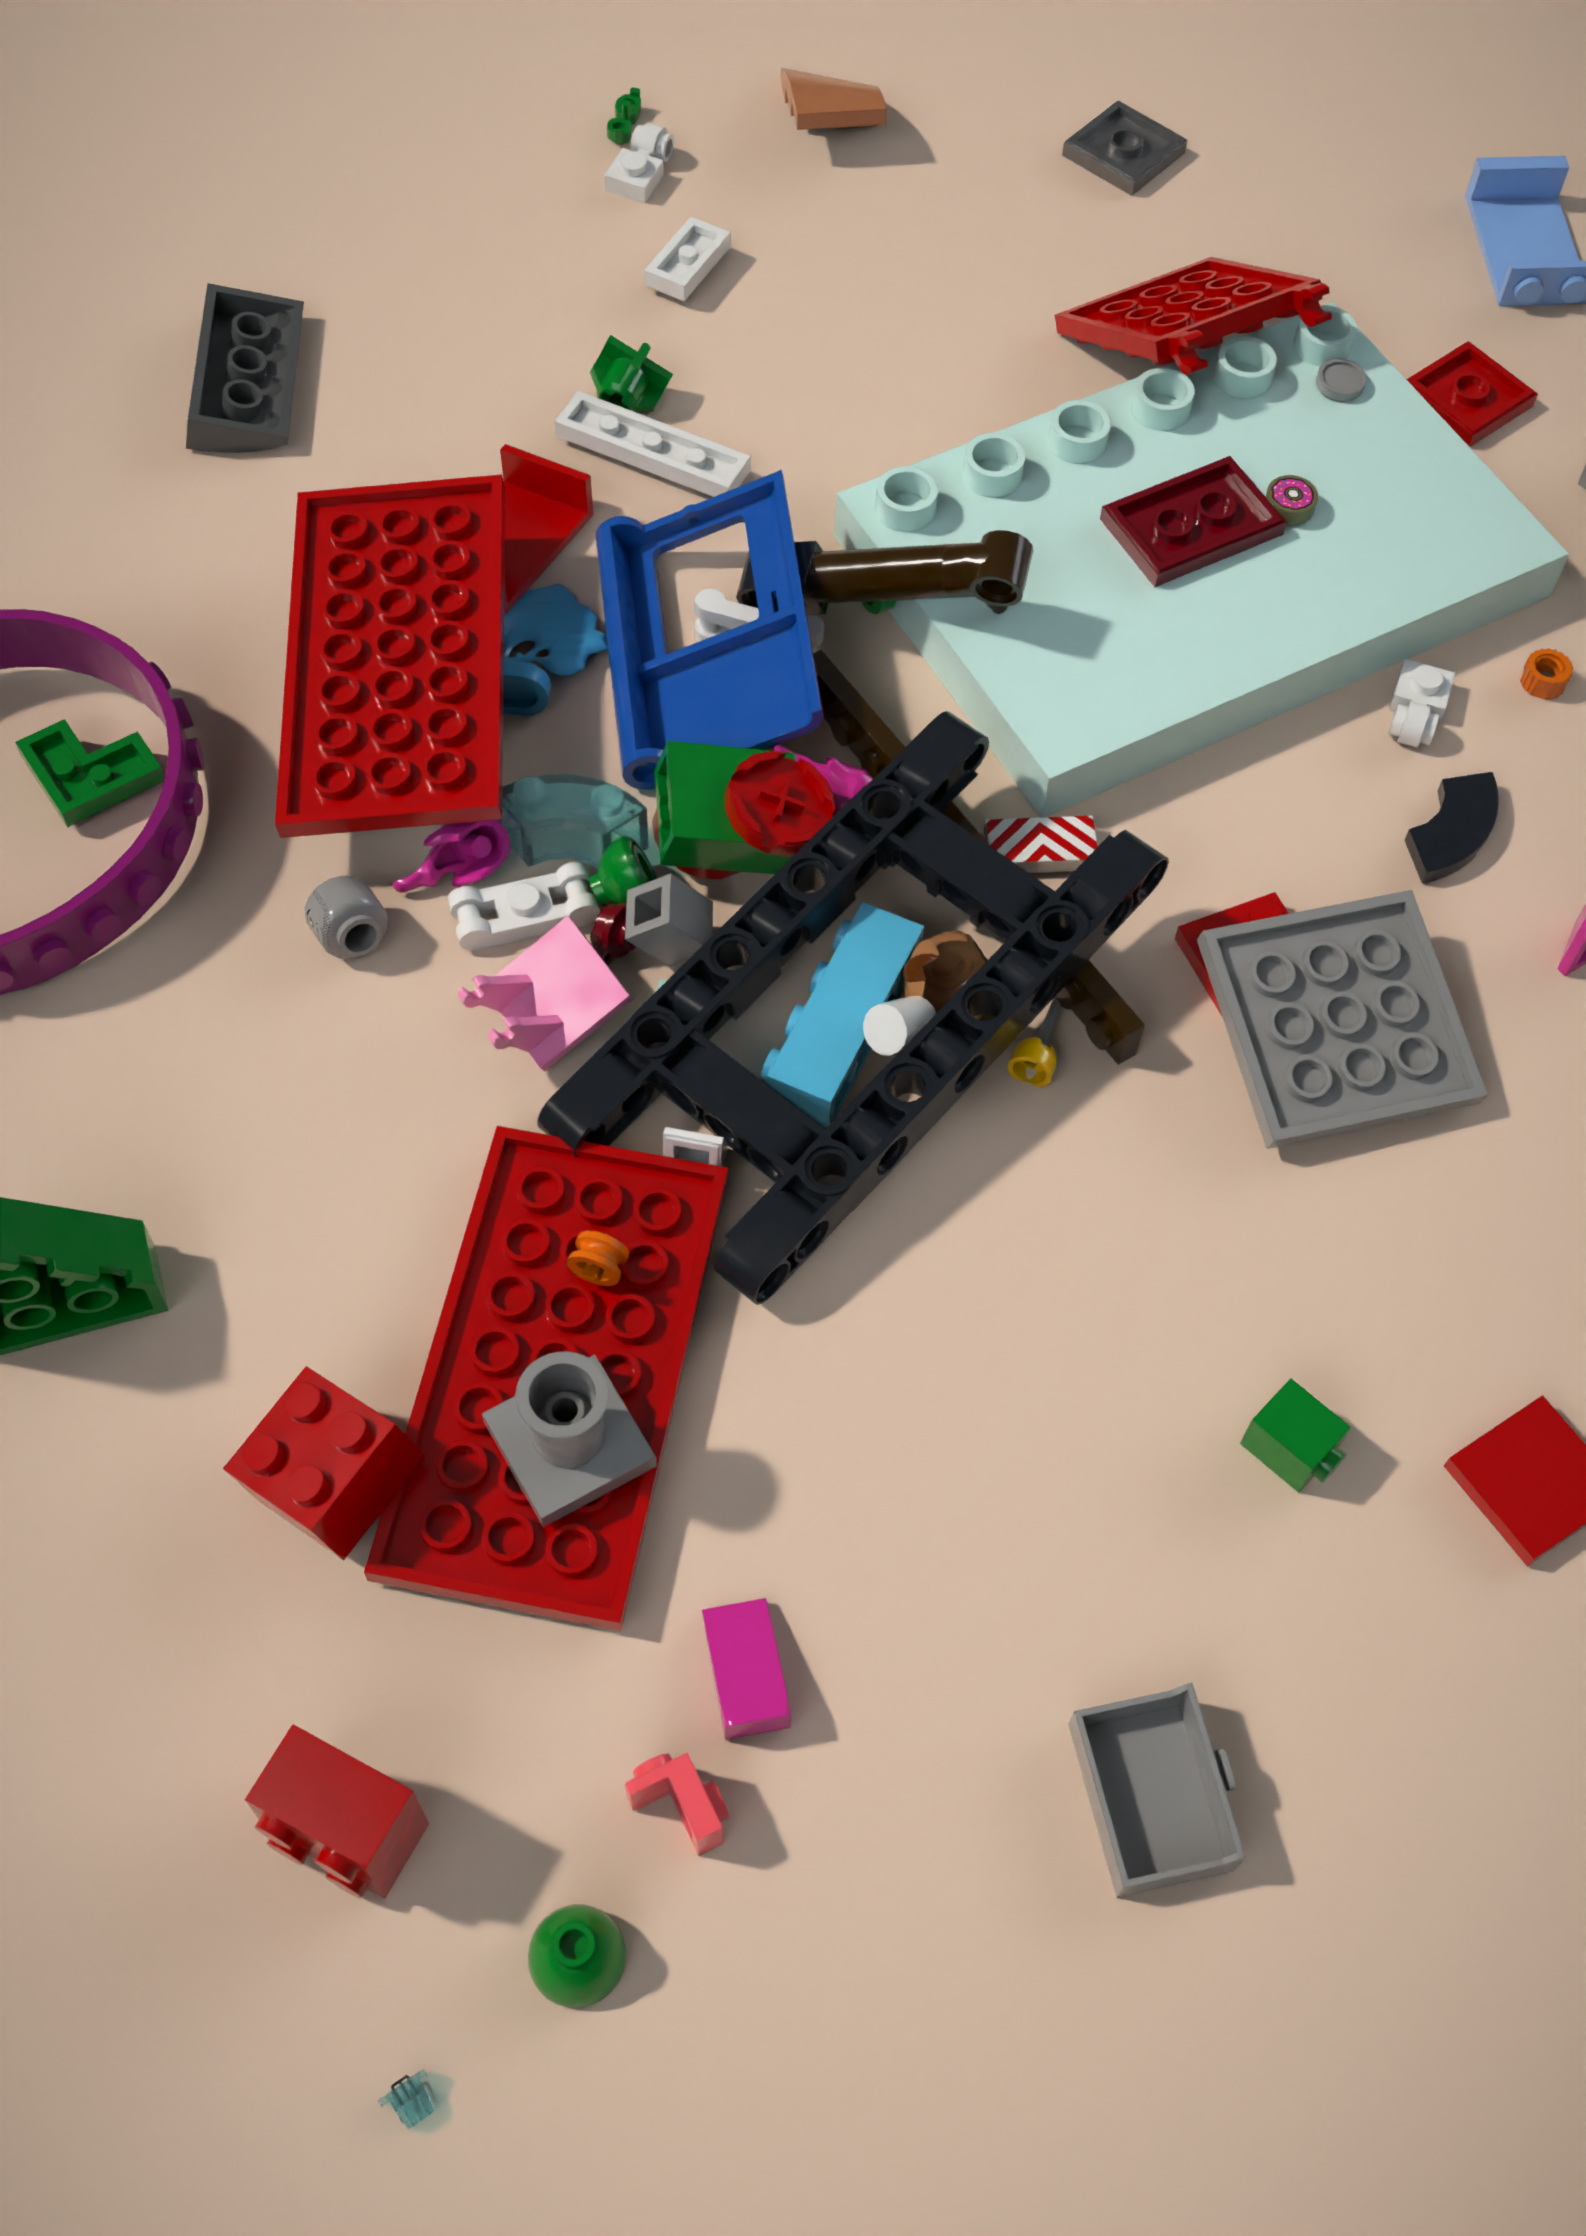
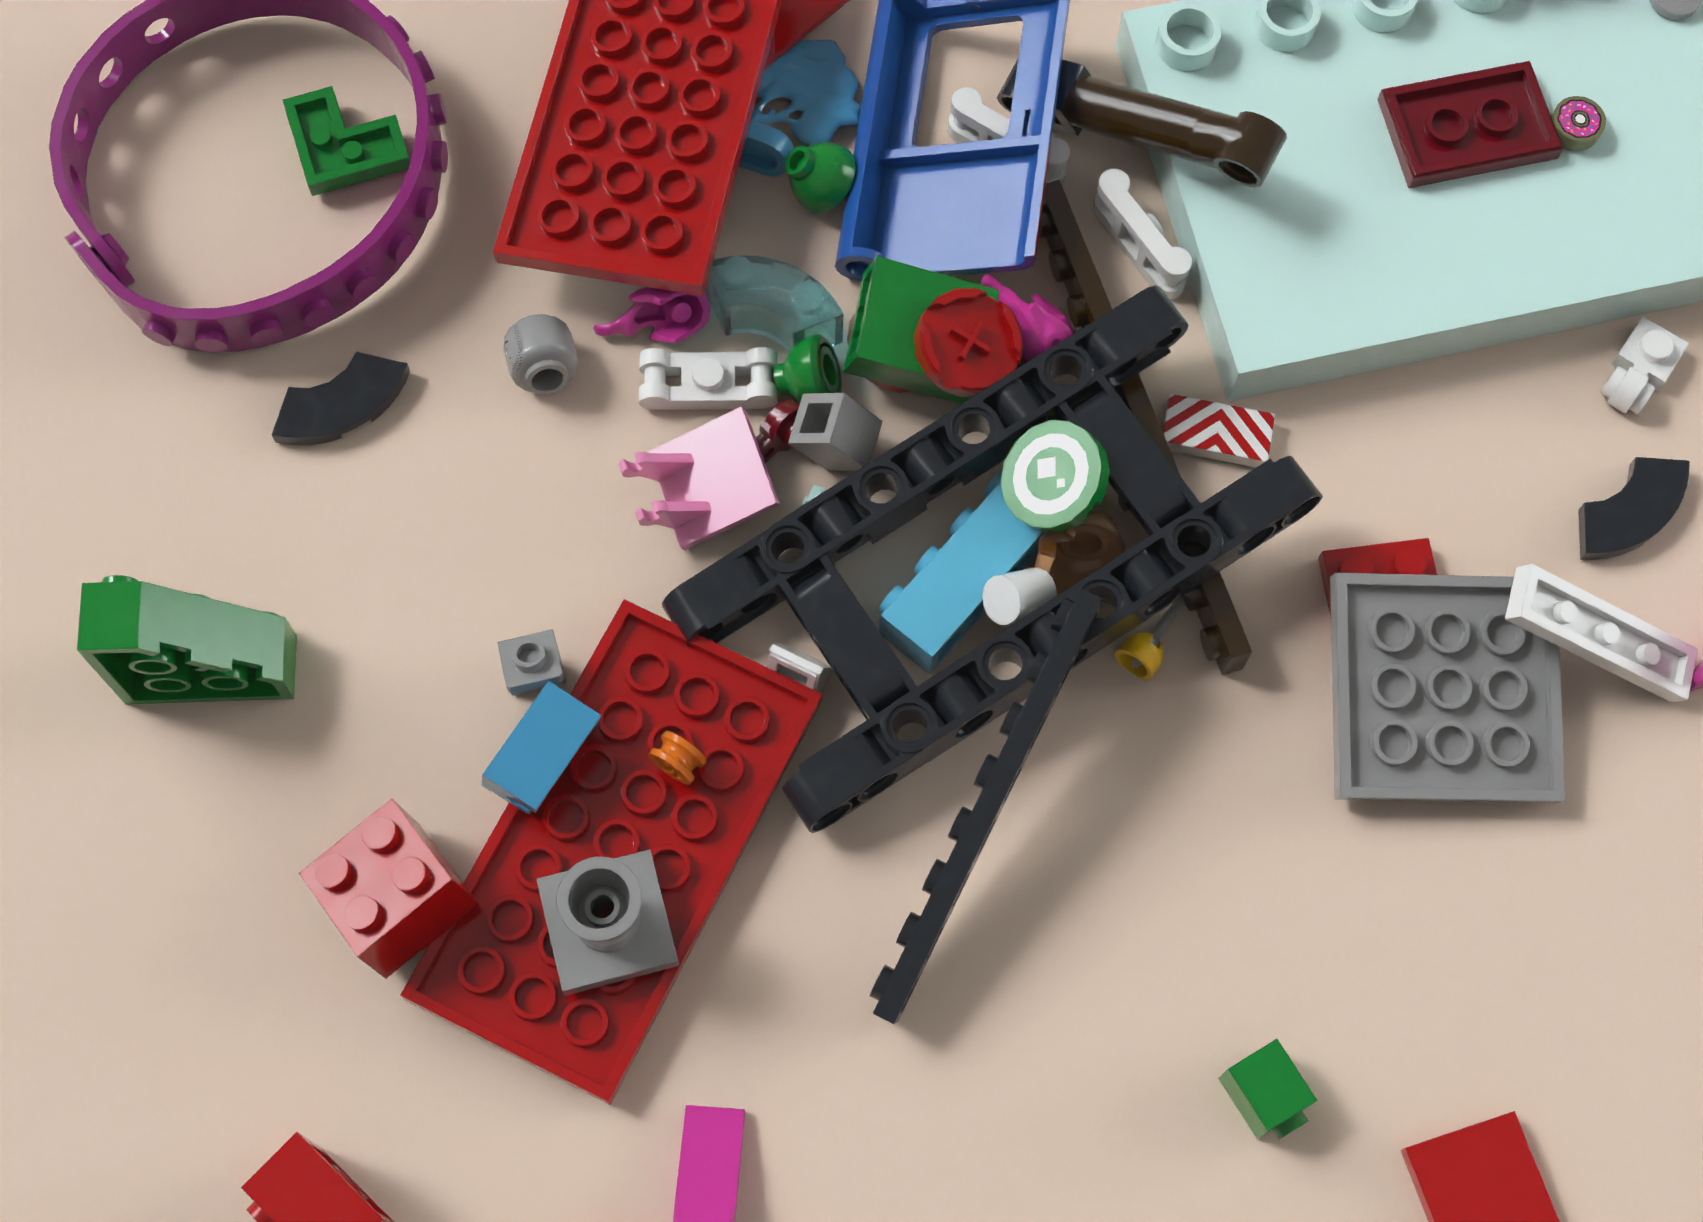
camera: 15 degrees right, 10 degrees up
(150, 1011) = (342, 404): none -> black tile
(418, 1207) = (531, 662): none -> light grey bracket
(450, 1283) = (539, 748): none -> dark azure hinge
(584, 697) = (820, 175): none -> green brick
(903, 901) = (1054, 476): none -> tile
(907, 683) = (1140, 235): none -> white plate
(923, 1247) = (974, 826): none -> black plate
(1470, 930) = (1601, 633): none -> white plate

